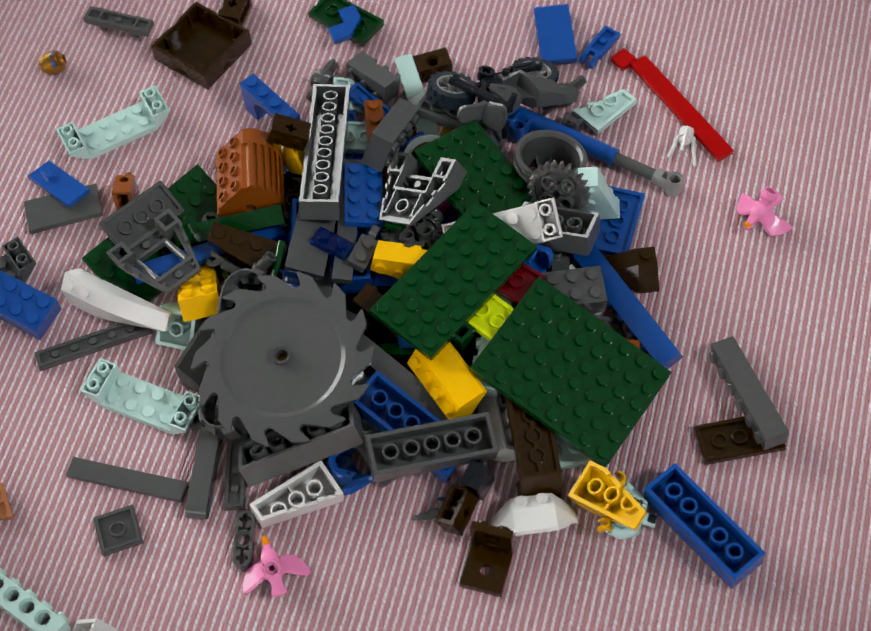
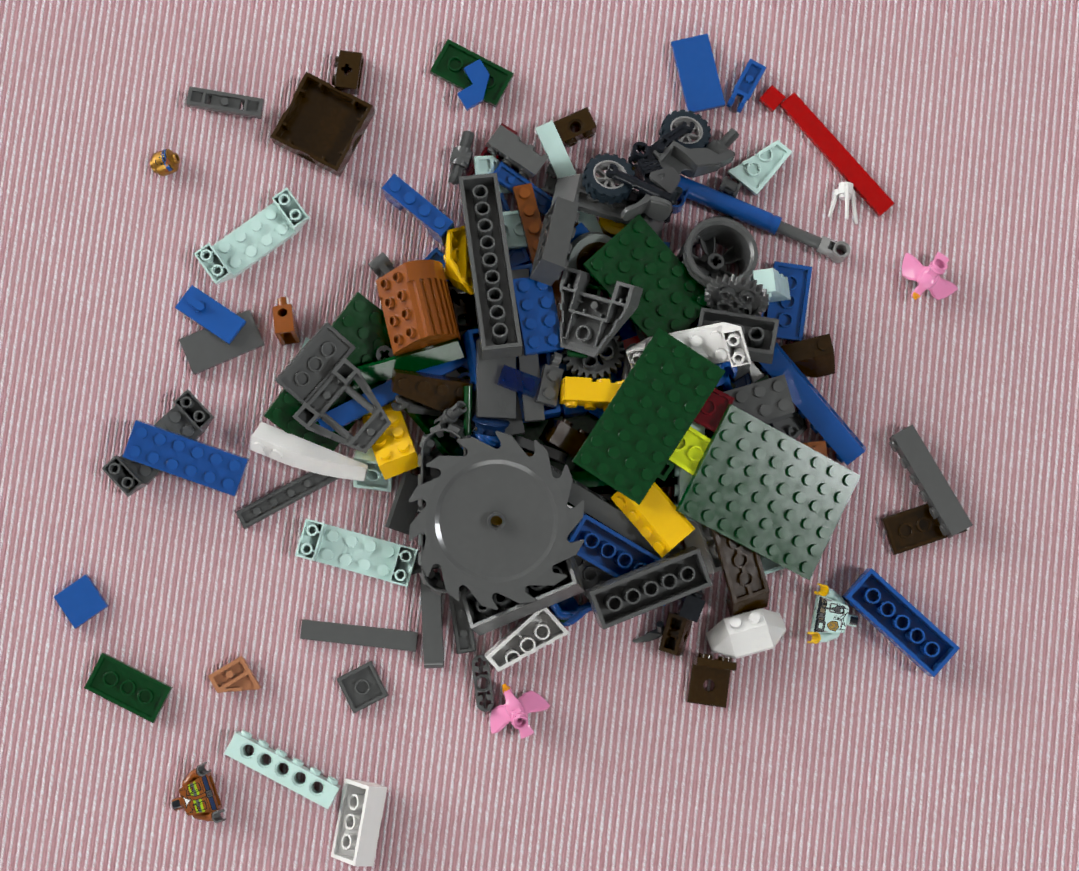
camera: 15 degrees left, 25 degrees up
(288, 132) = (445, 255): dark brown brick -> none
(605, 497) = (811, 610): yellow wedge -> none

